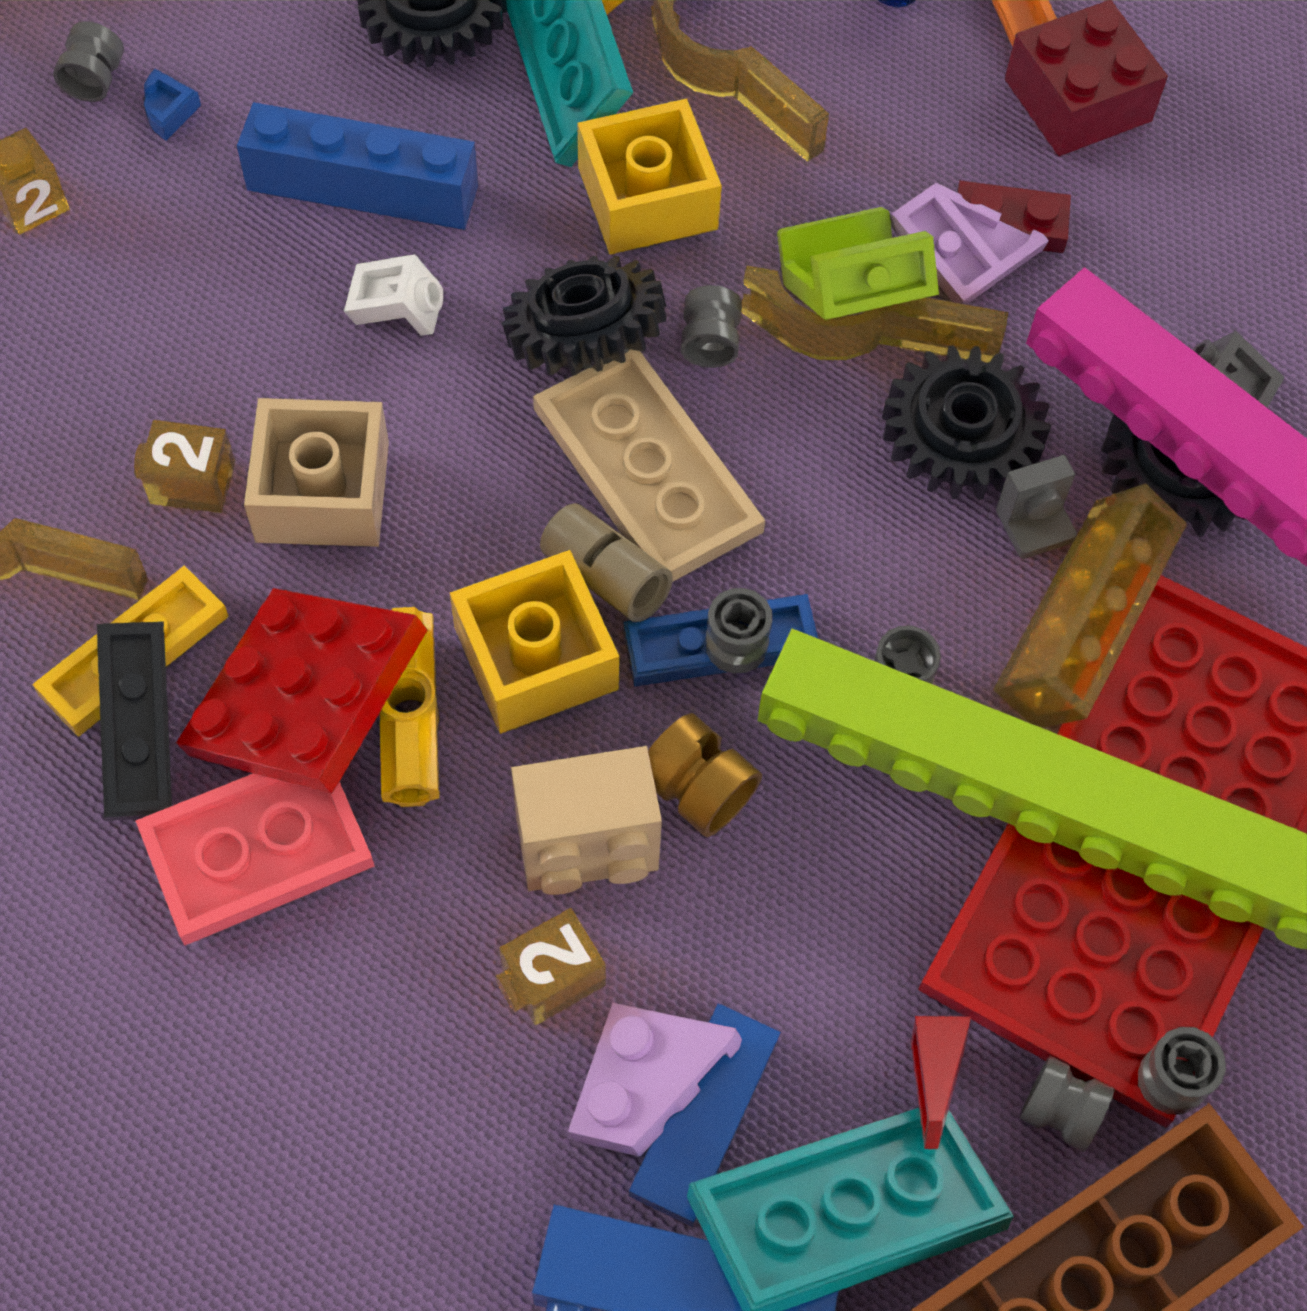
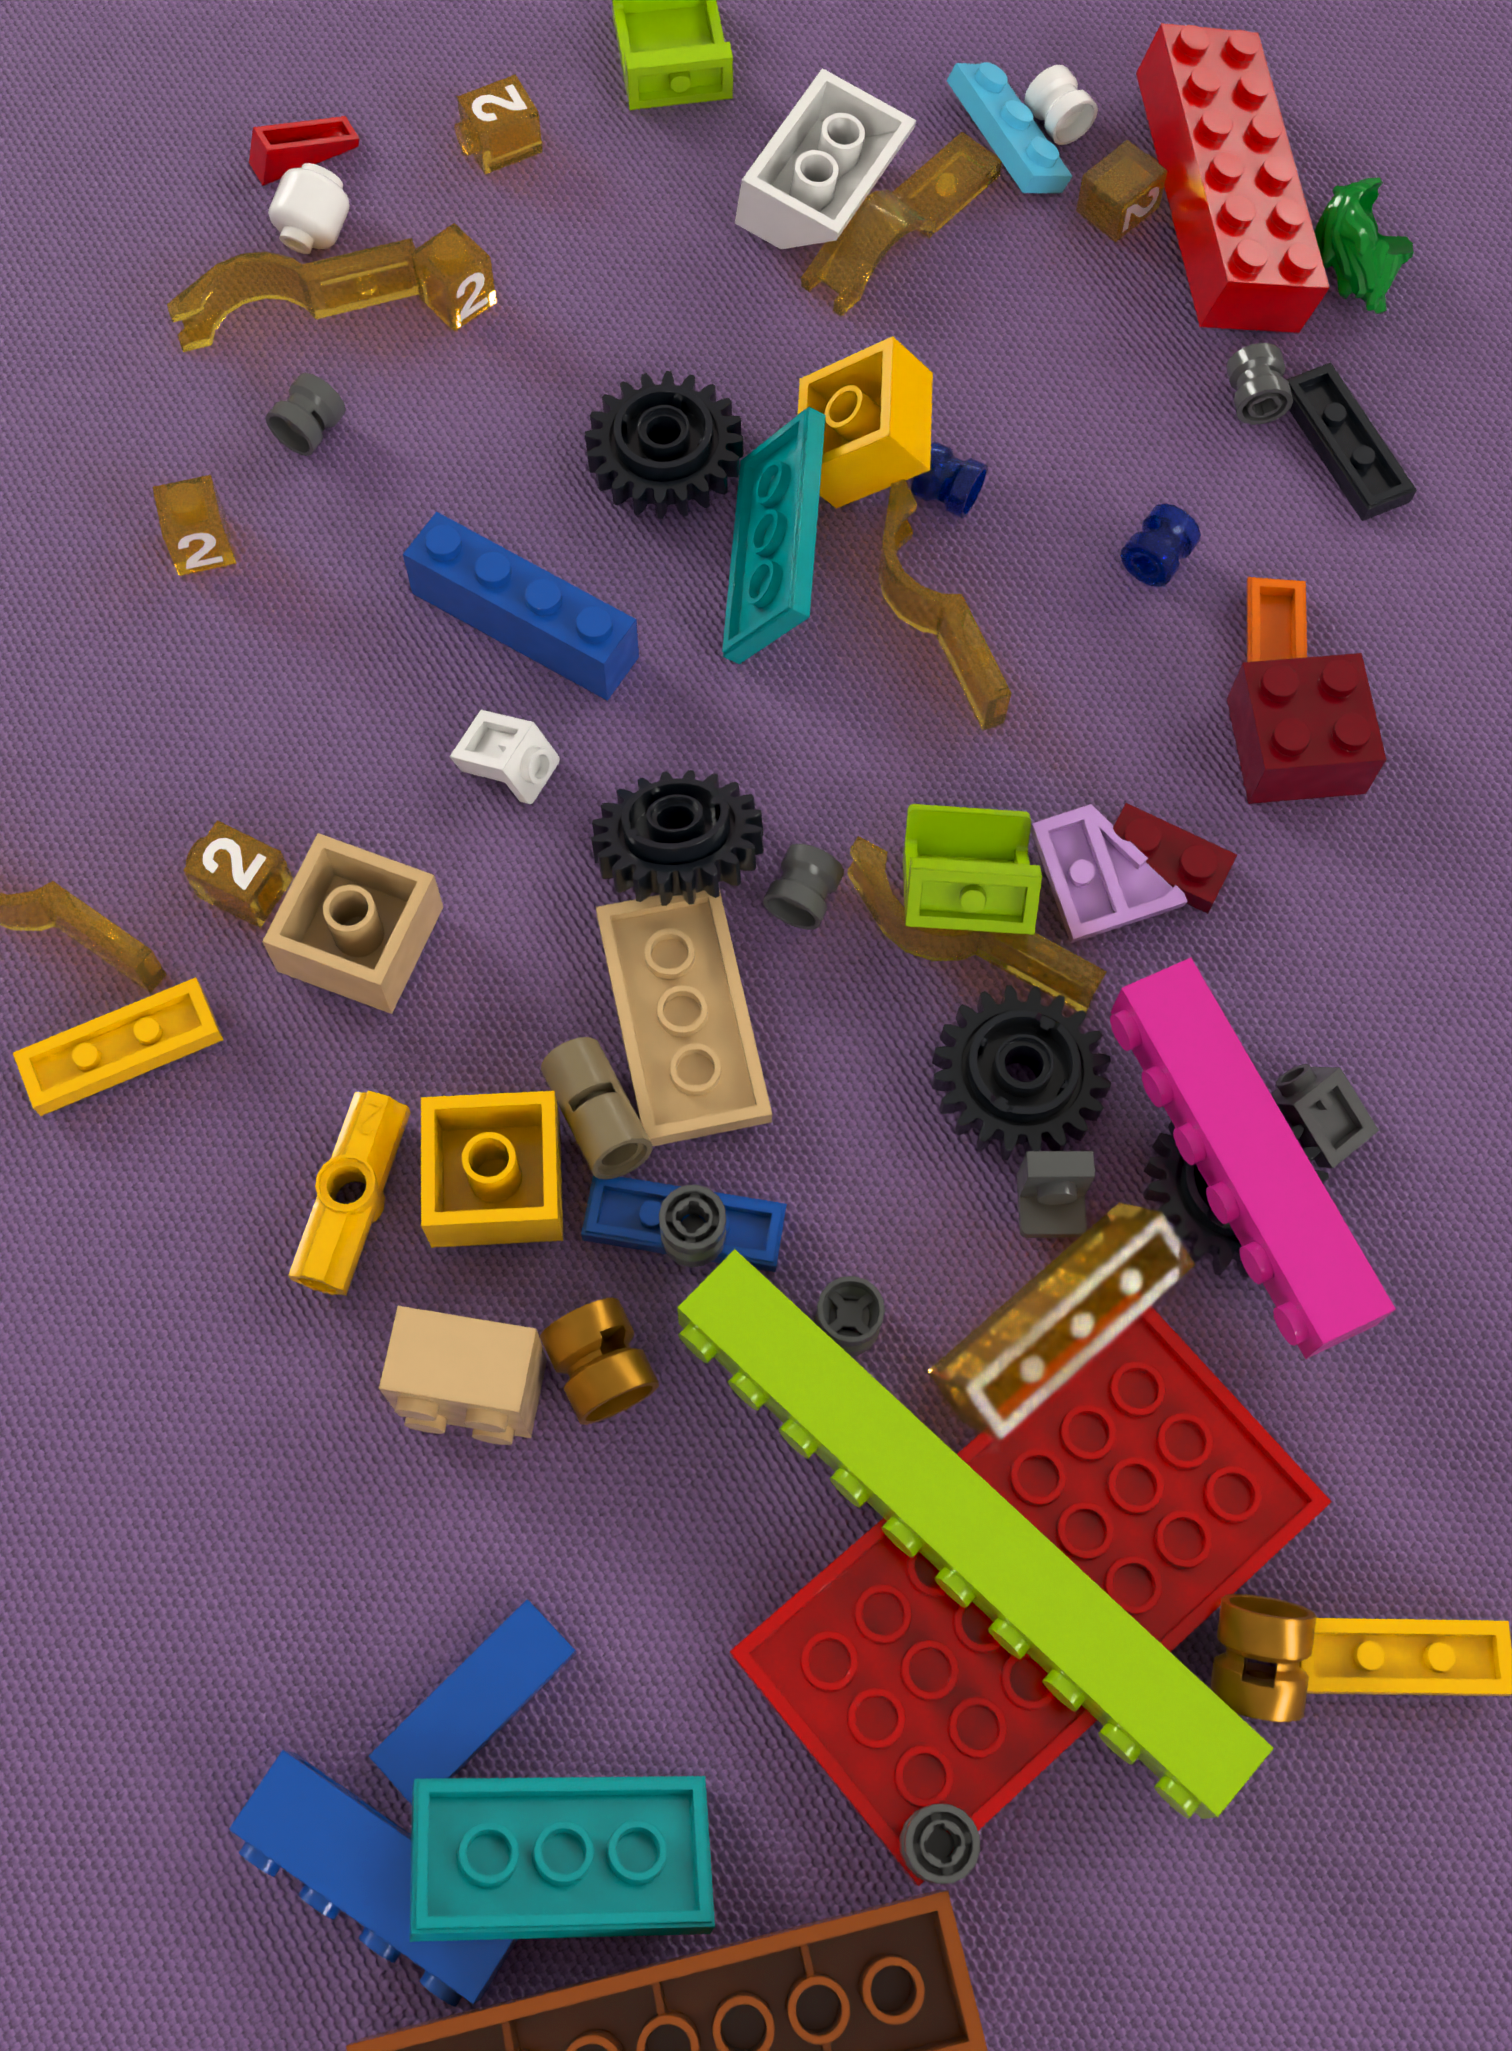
camera: 20 degrees right, 5 degrees up
(133, 719) = (90, 1121): black tile -> none
(168, 103) = (368, 479): blue tile -> none
(250, 850) = (157, 1282): coral plate -> none
(302, 688) = (254, 1143): red plate -> none
(550, 967) = (379, 1506): clear yellow brick -> none
(644, 1075) = (427, 1647): lavender wing -> none
(648, 176) = (801, 705): yellow brick -> none
(937, 1057) = (717, 1734): red piece -> none
(1067, 1104) = (822, 1828): dark grey wheel -> none

